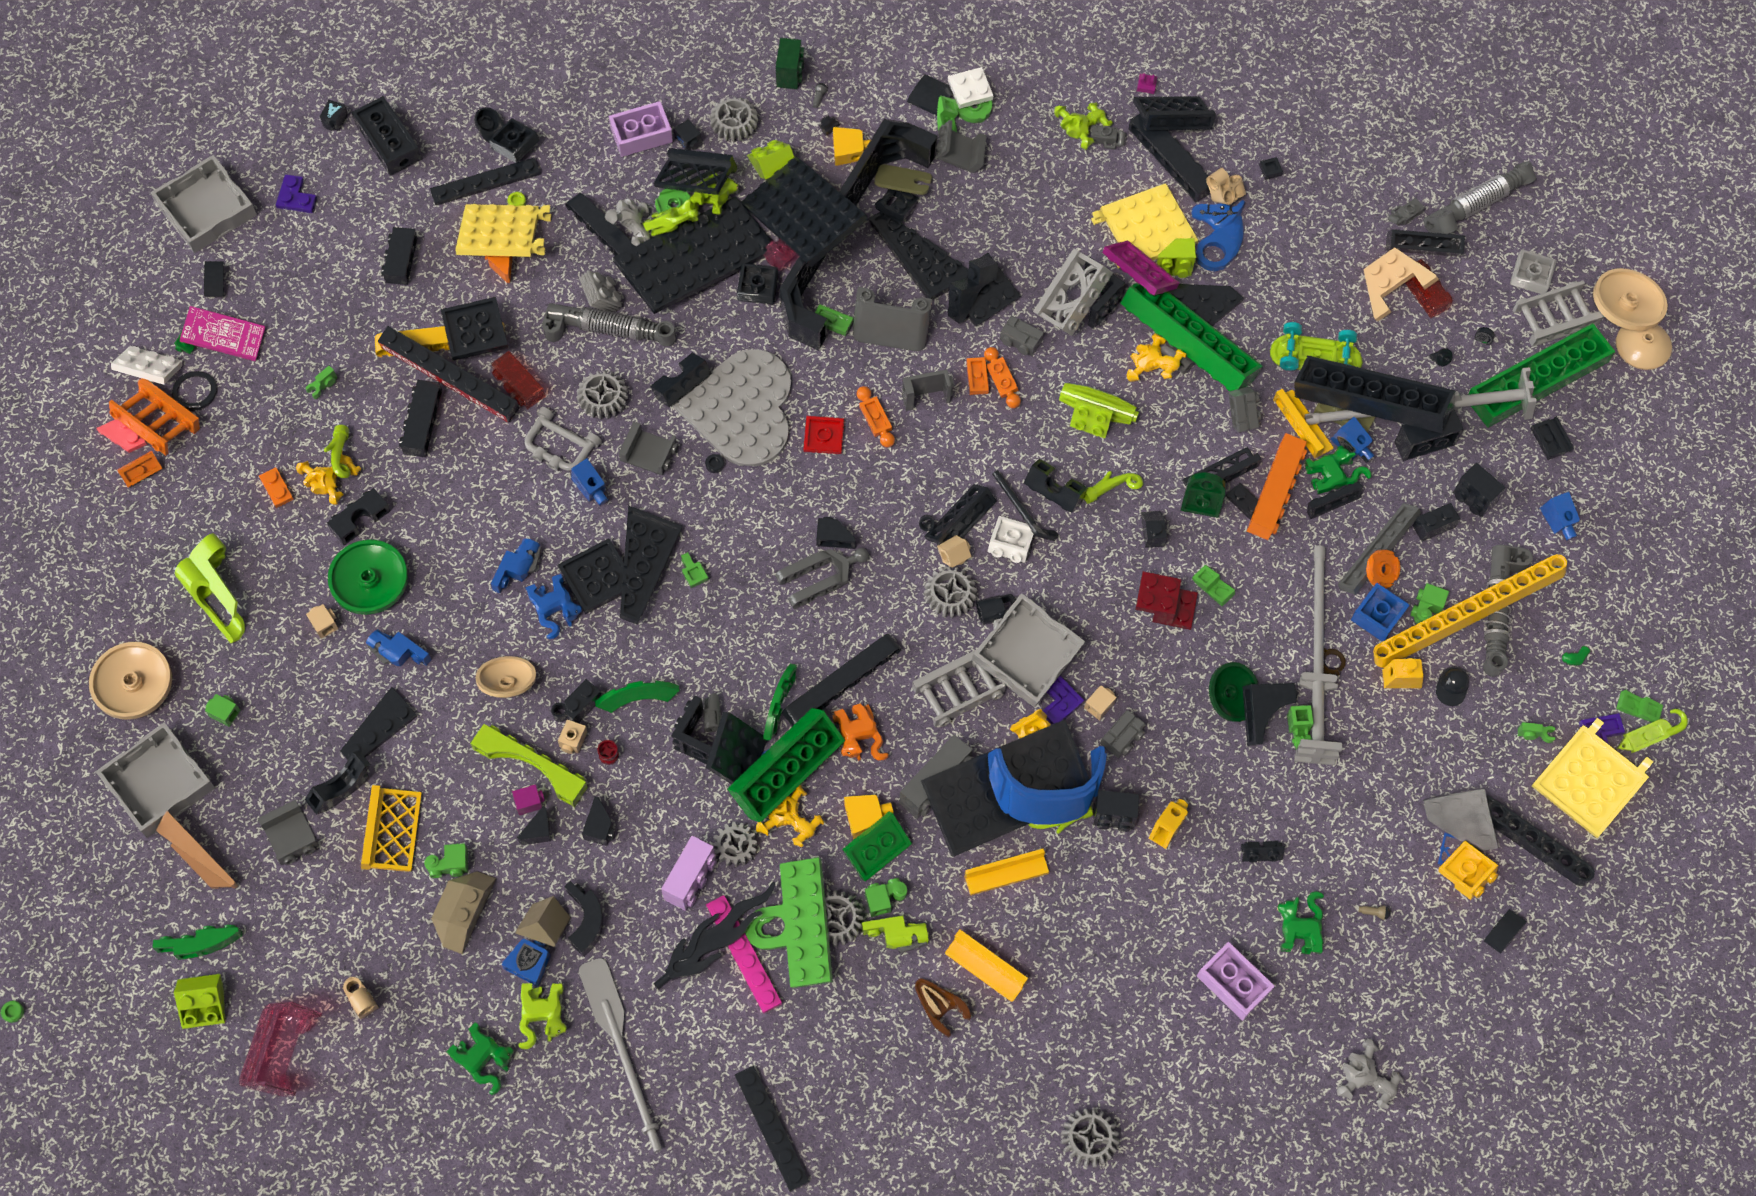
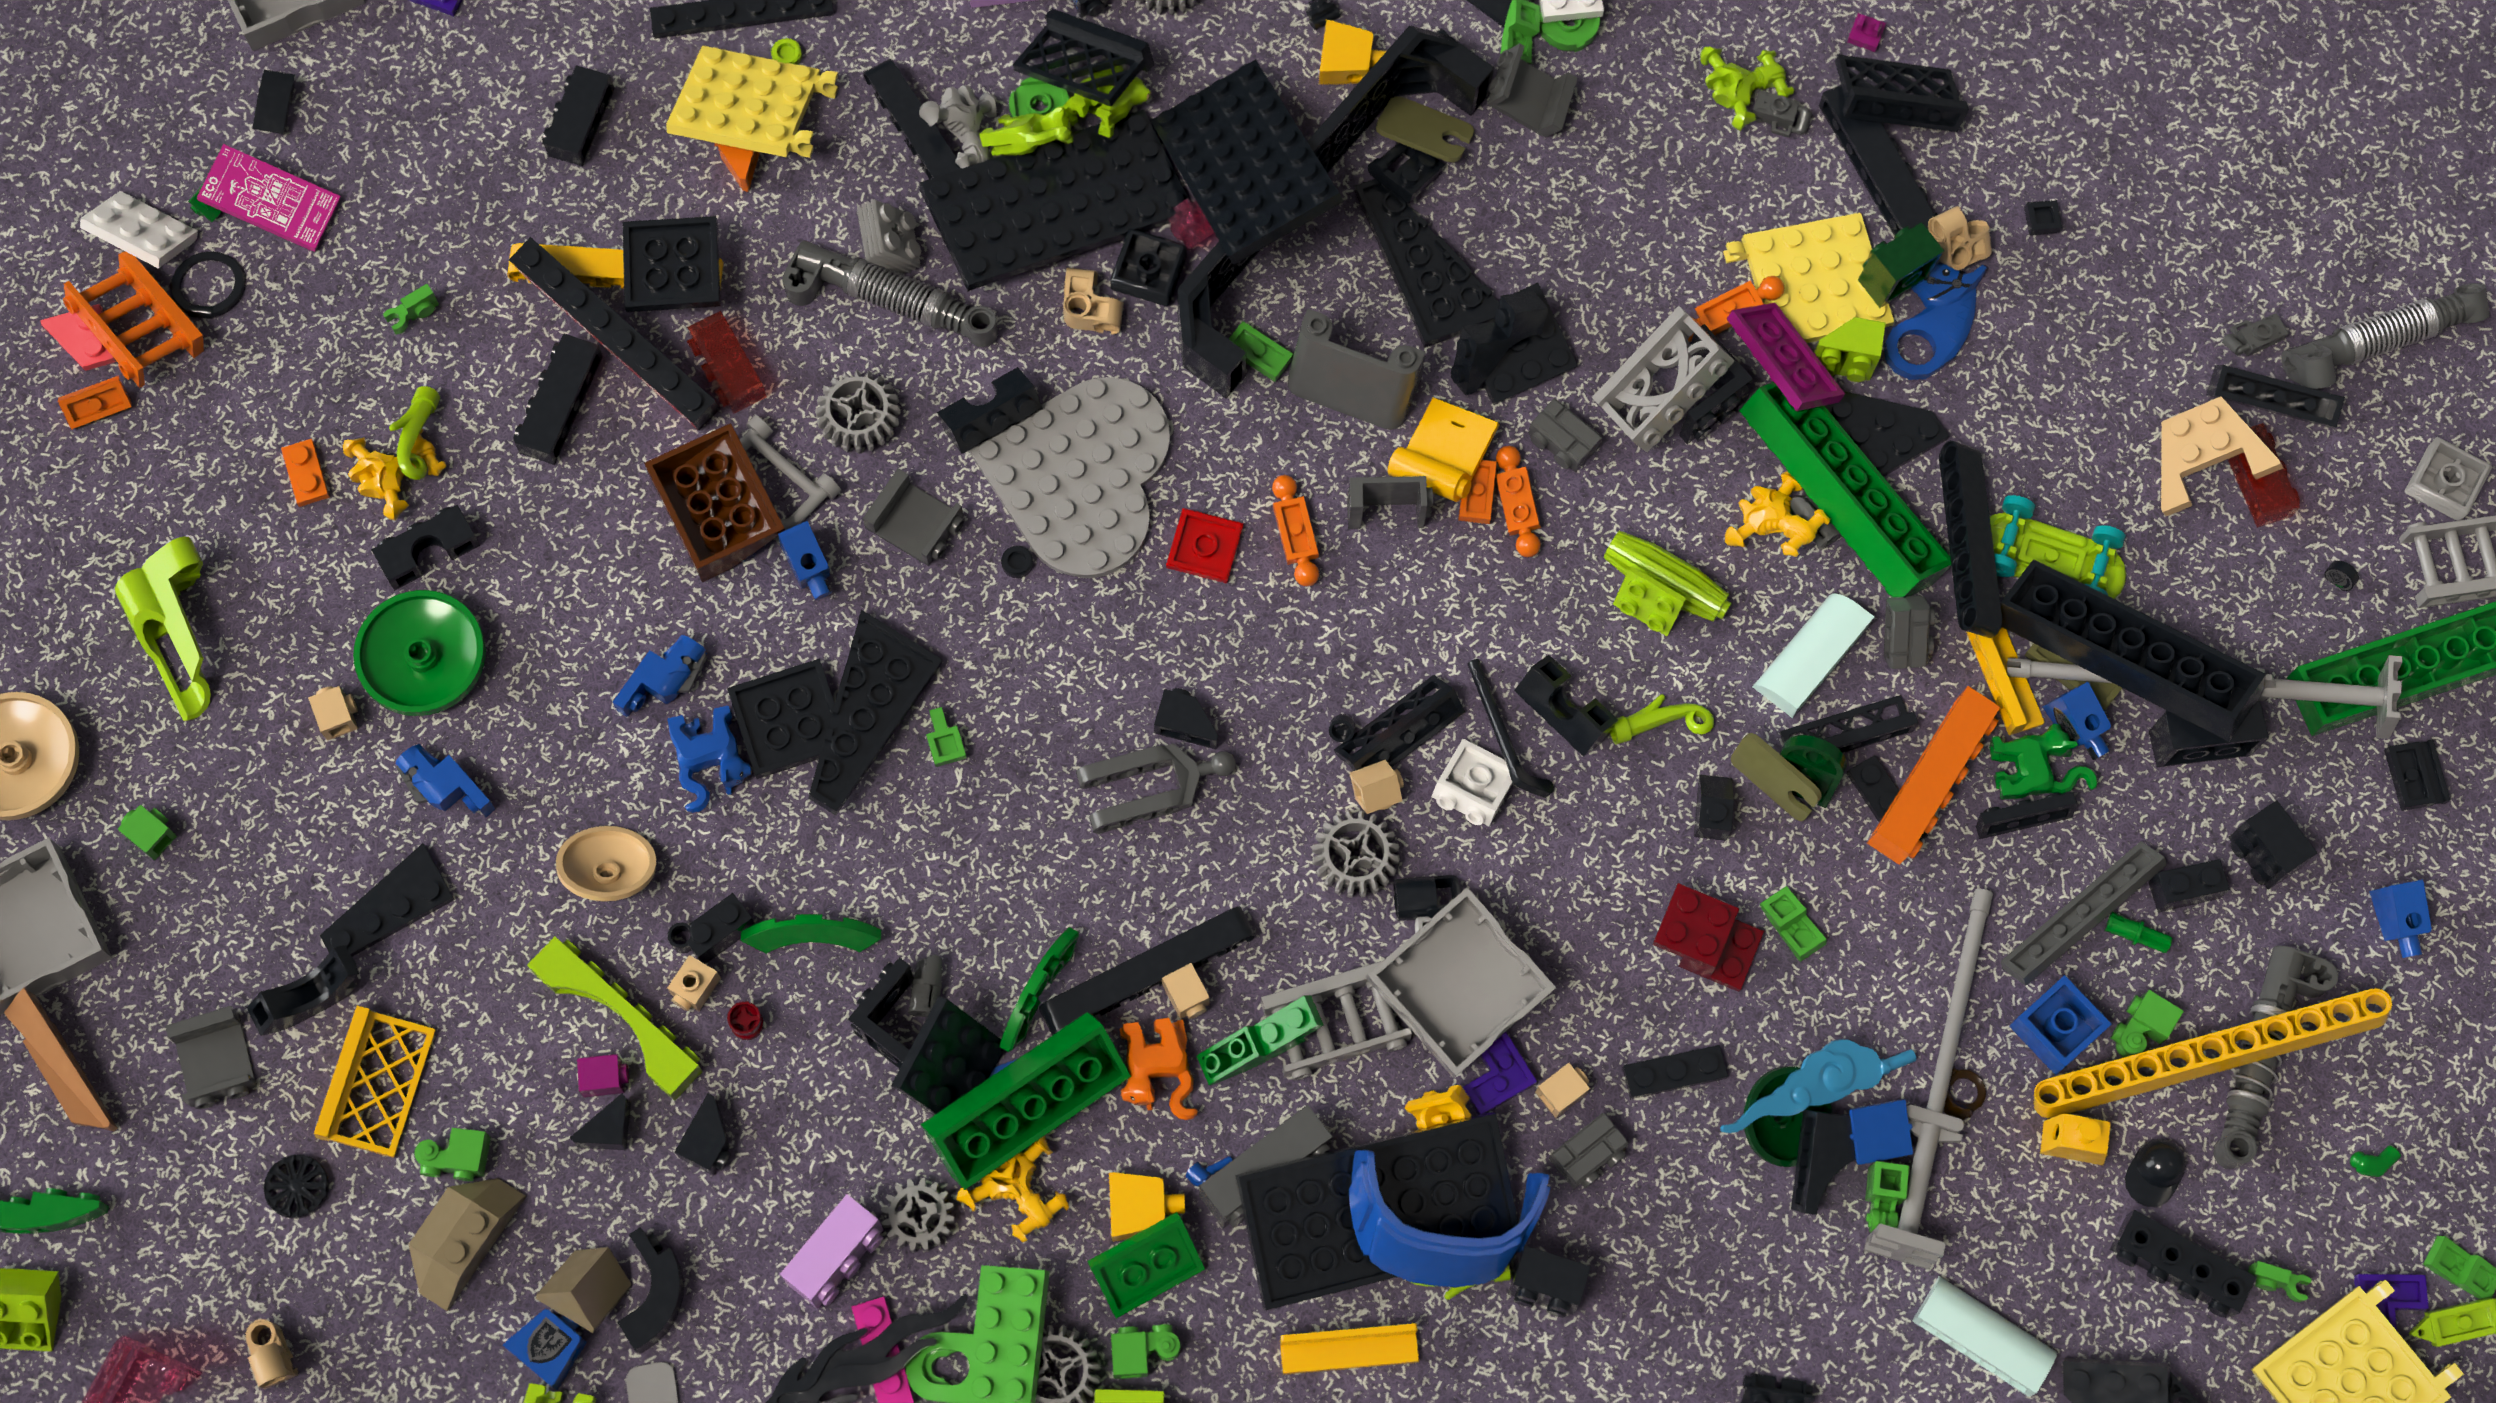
camera: 10 degrees right, 5 degrees up
(355, 898) = (296, 1186): none -> black wheel
(527, 459) = (715, 501): none -> reddish brown slope
(733, 313) = (1099, 312): none -> tan piece
(770, 158) = (1214, 54): lime slope -> none
(867, 687) = (1186, 992): none -> tan brick
(895, 789) = (1198, 1174): none -> blue hand
(917, 707) = (1260, 1042): none -> green slope
(954, 352) = (1445, 451): none -> yellow door
(1096, 249) = (1716, 311): none -> orange plate
(1163, 681) = (1674, 1072): none -> black plate
(1169, 823) = (1633, 1318): yellow torso -> none
(1185, 503) = (1775, 776): none -> olive piece
(1192, 432) = (1813, 653): none -> light aqua brick
(1195, 205) = (1900, 264): none -> dark green brick
(1250, 667) = (1824, 1079): none -> dark azure piece
(1269, 351) = (1970, 539): none -> black beam
(1290, 689) = (1881, 1131): none -> blue piece
(1375, 564) = (2067, 946): orange tile -> none
(1375, 796) = (1985, 1337): none -> light aqua brick
(1413, 554) = (2137, 932): none -> green axle
(1442, 357) = (2261, 599): black plate -> none
(1479, 733) = (2183, 1264): none -> black brick

